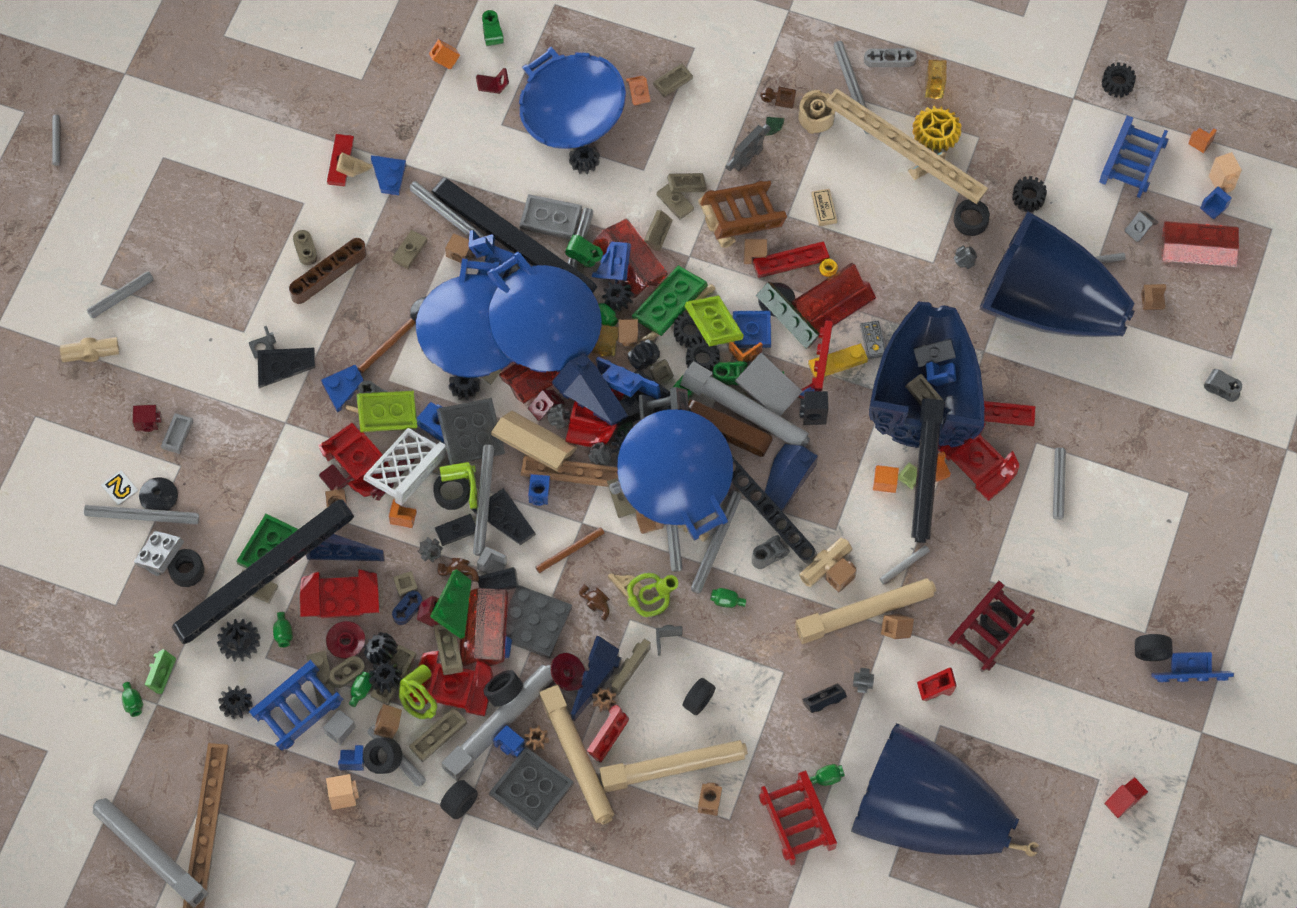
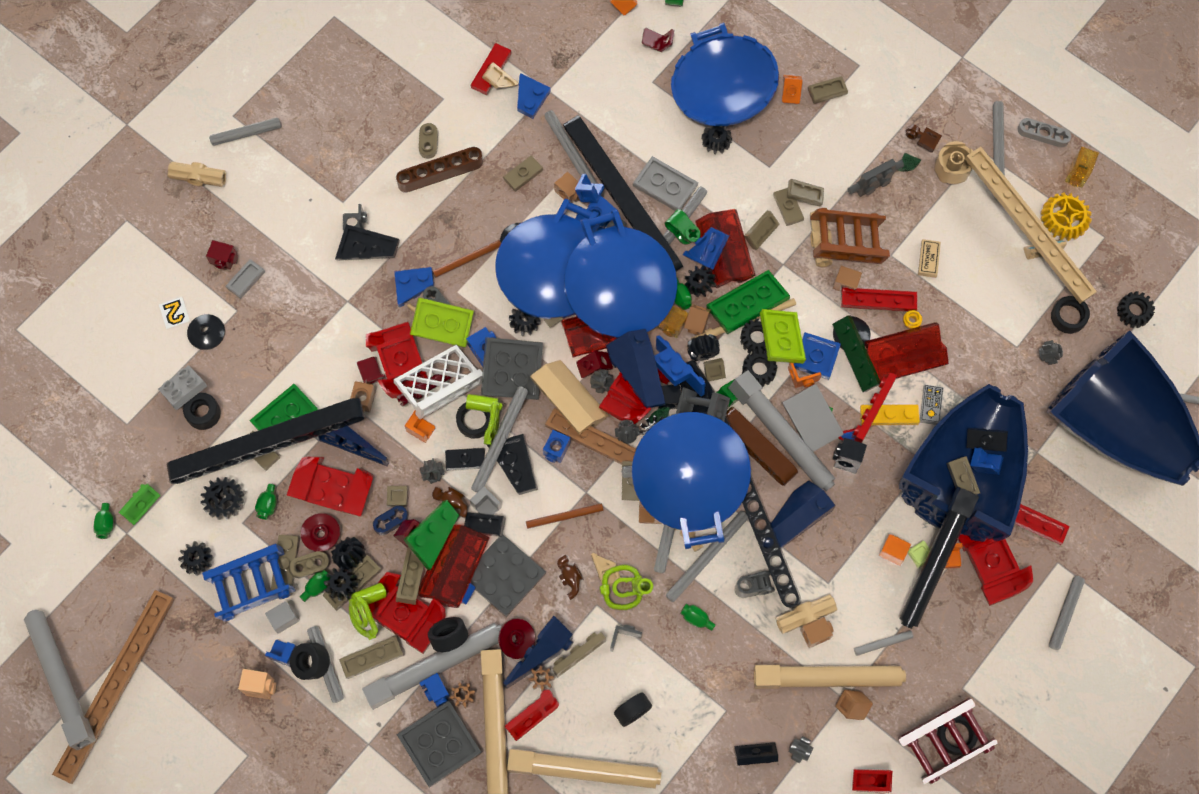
camera: 20 degrees right, 5 degrees up
(141, 514) = (183, 345): light grey axle -> none
(387, 721) = (327, 628): medium nougat brick -> none
(458, 799) = (365, 731): black tyre -> none
(731, 370) = (782, 390): green piece -> none

